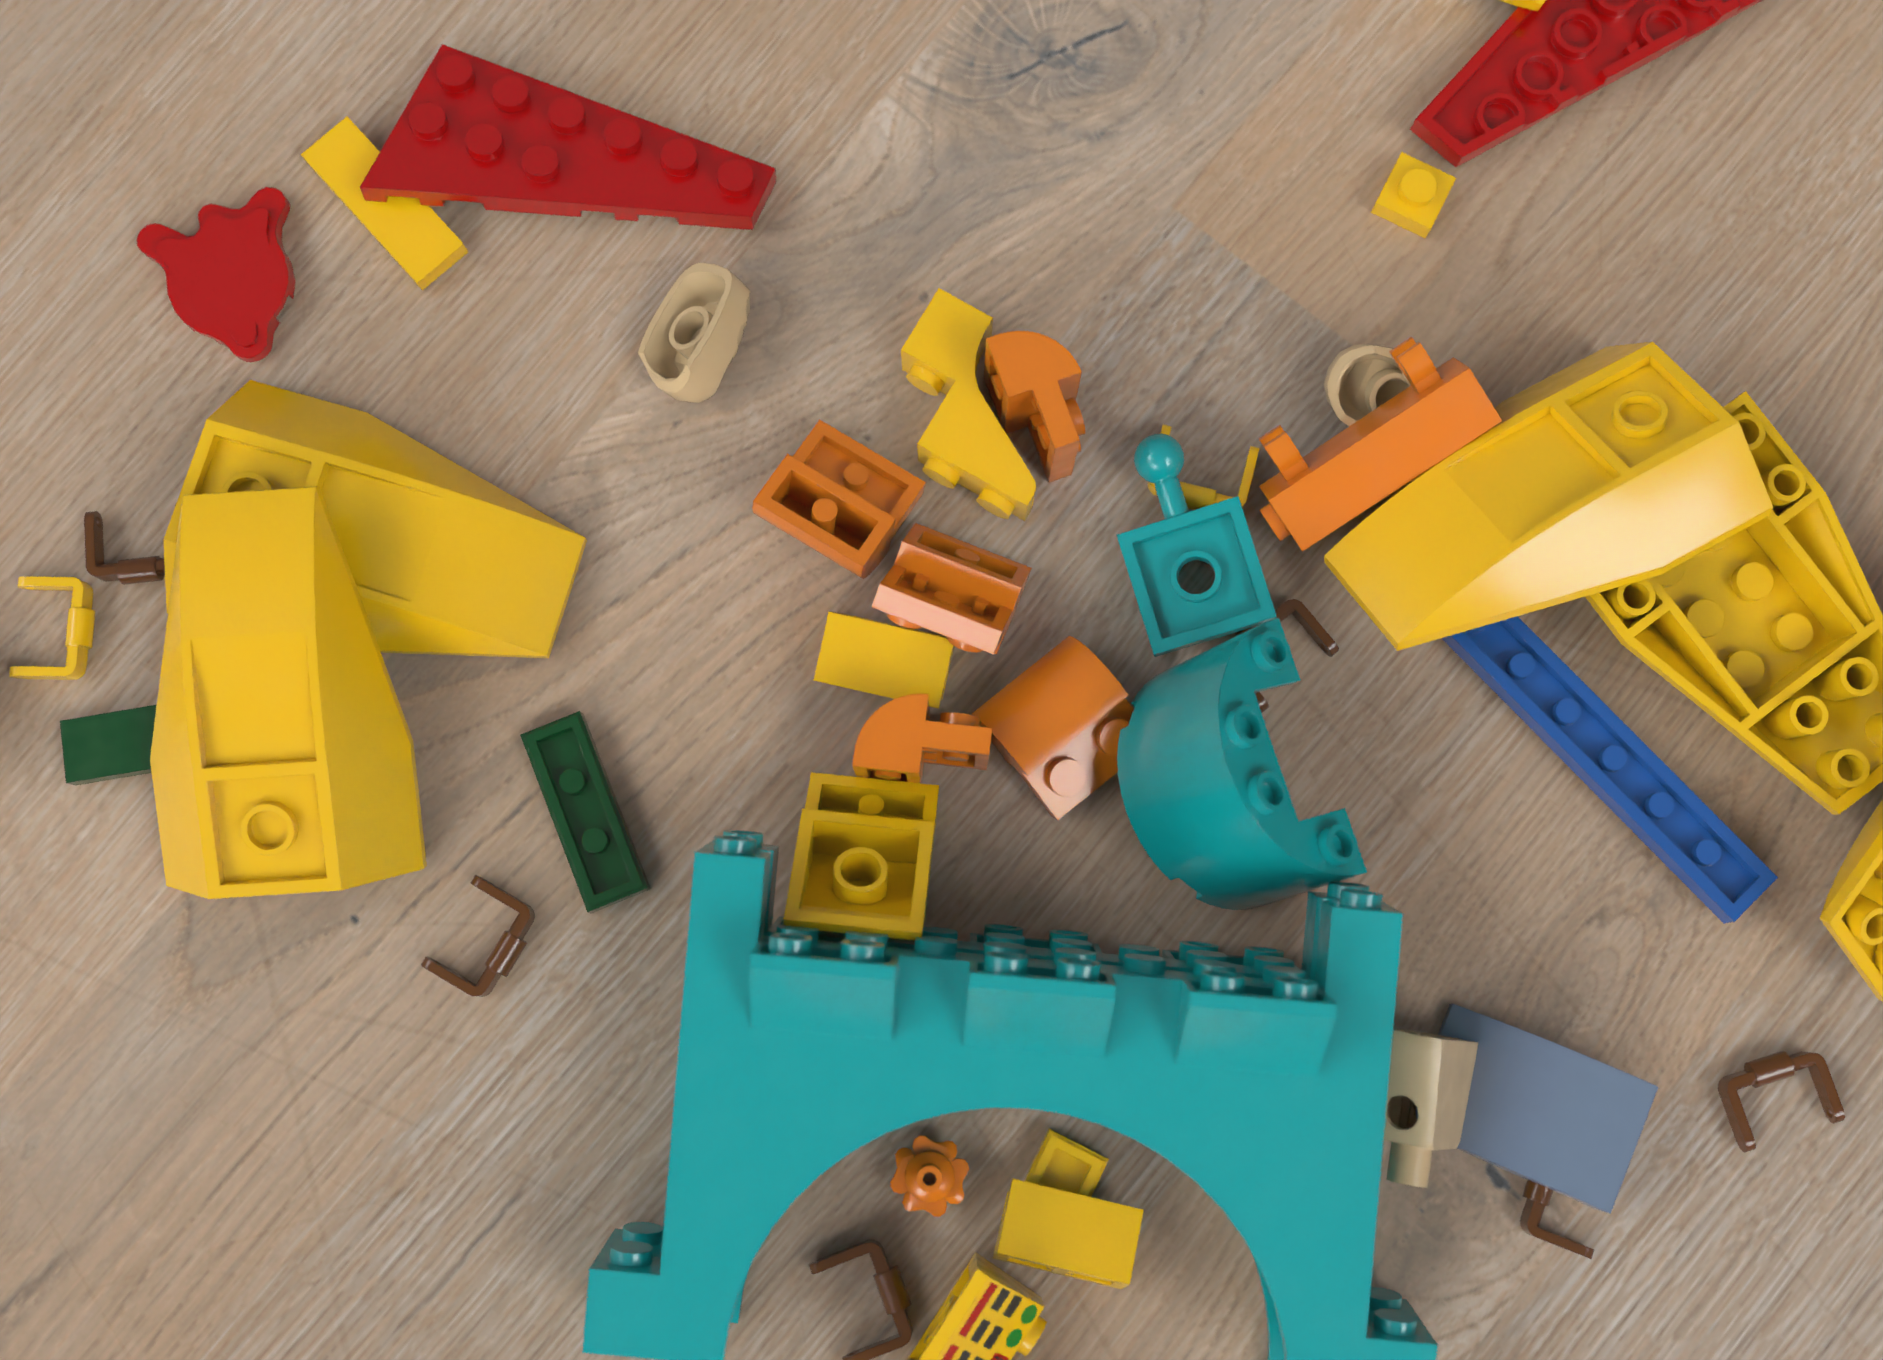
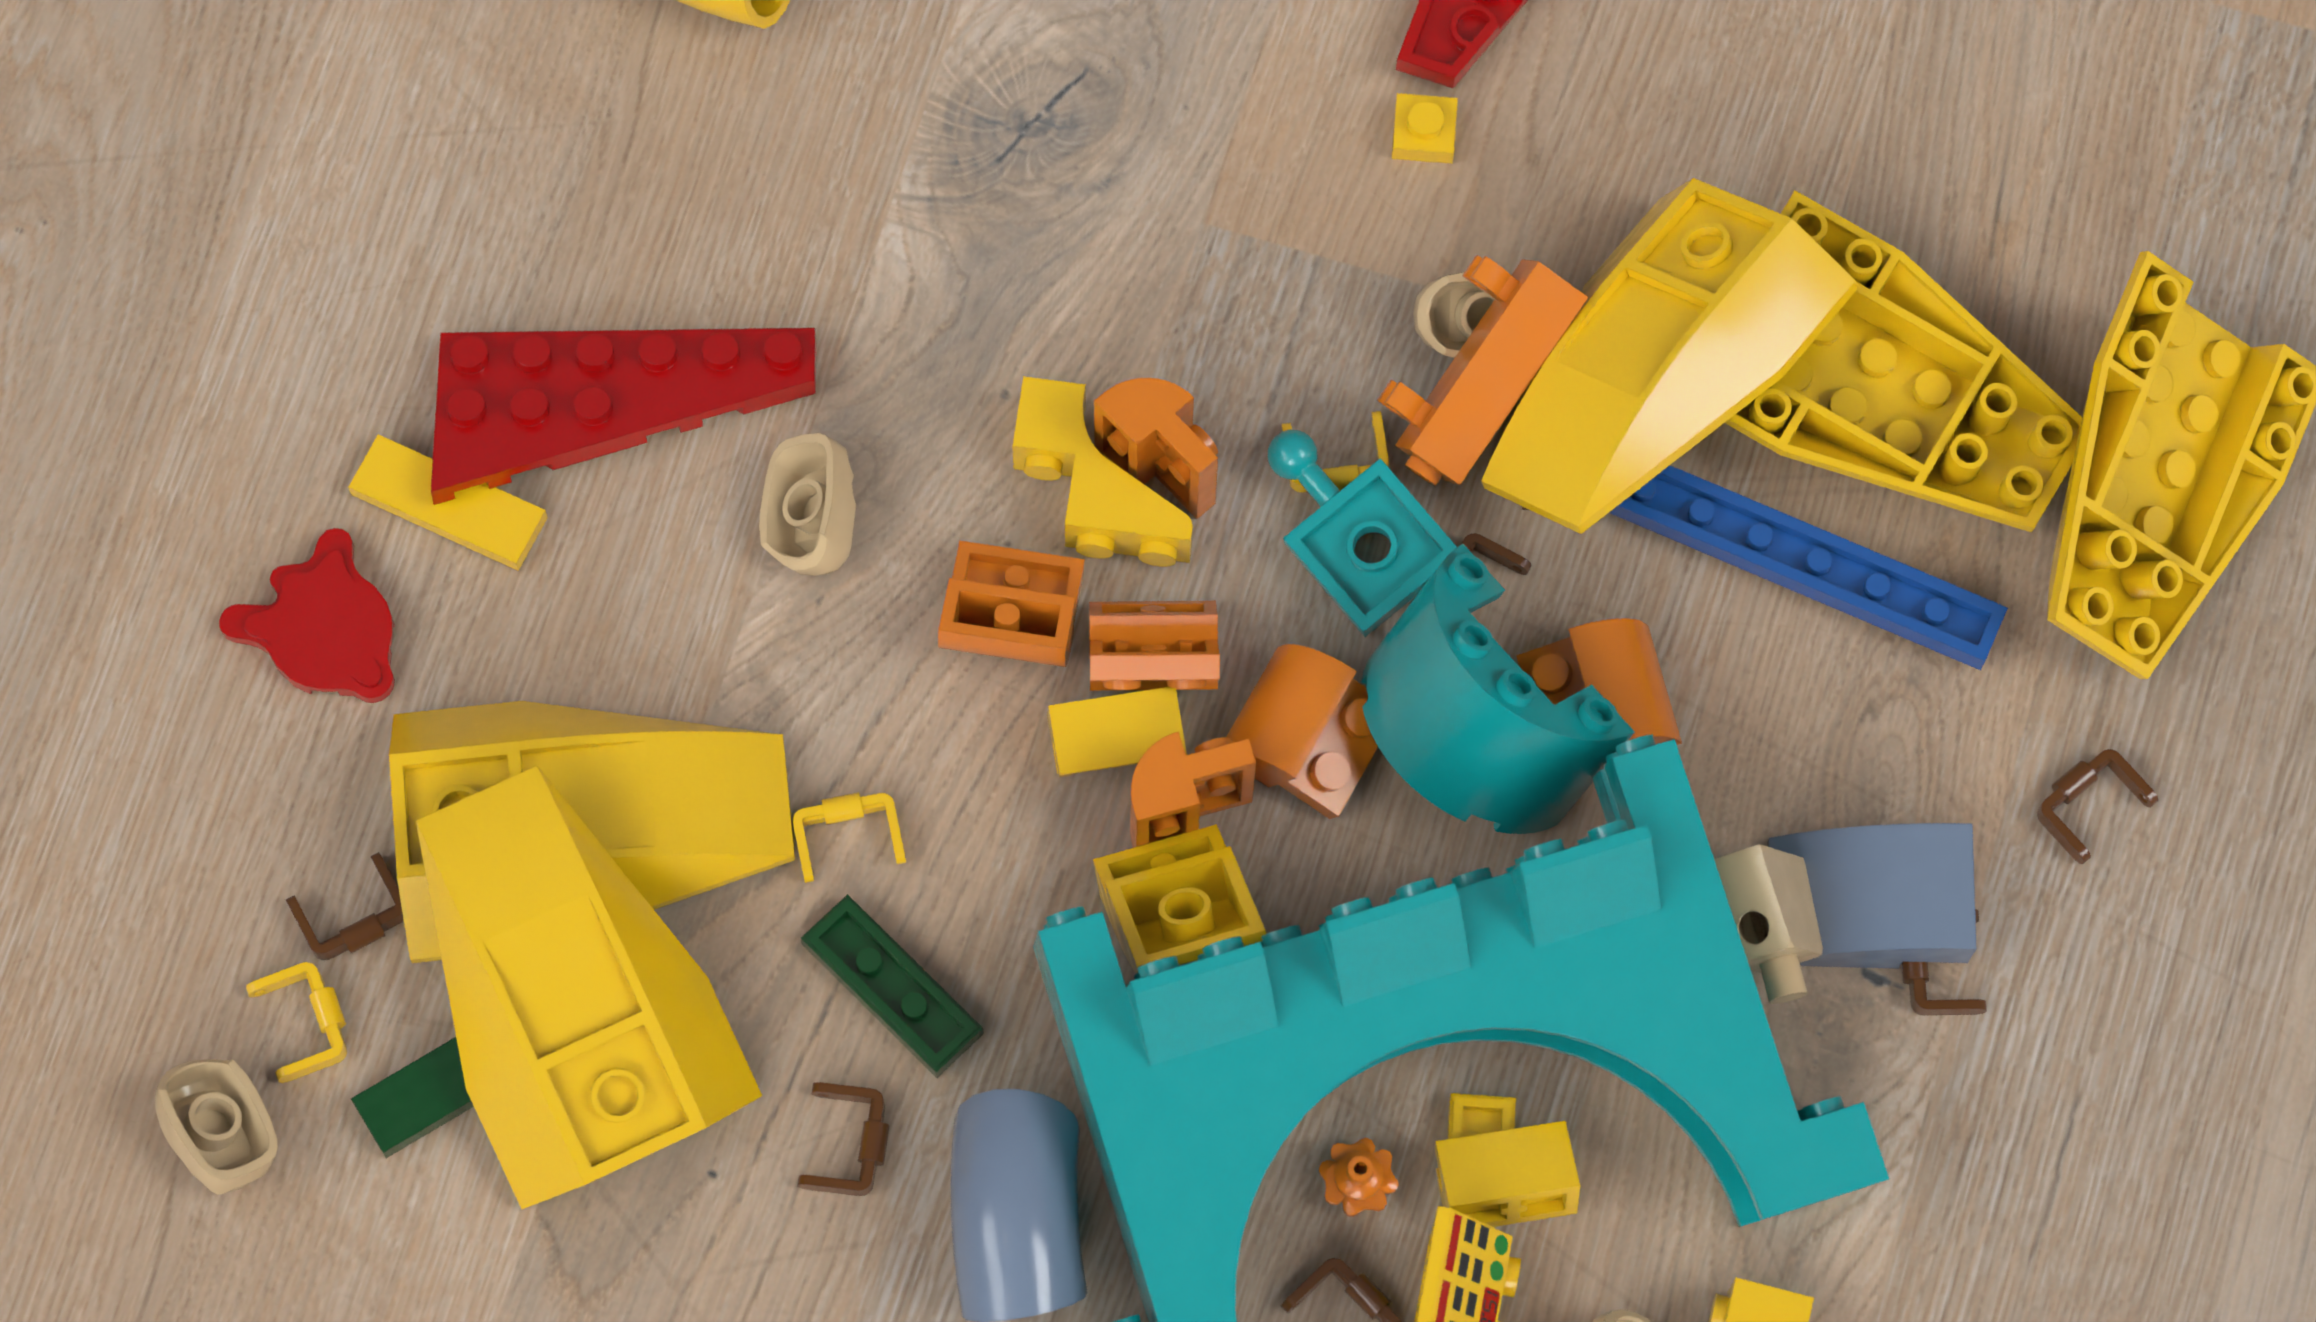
camera: 25 degrees left, 10 degrees down
(589, 1092) = (1015, 1206): none -> sand blue brick
(612, 628) = (843, 809): none -> yellow piece
(1370, 779) = (1619, 663): none -> orange brick

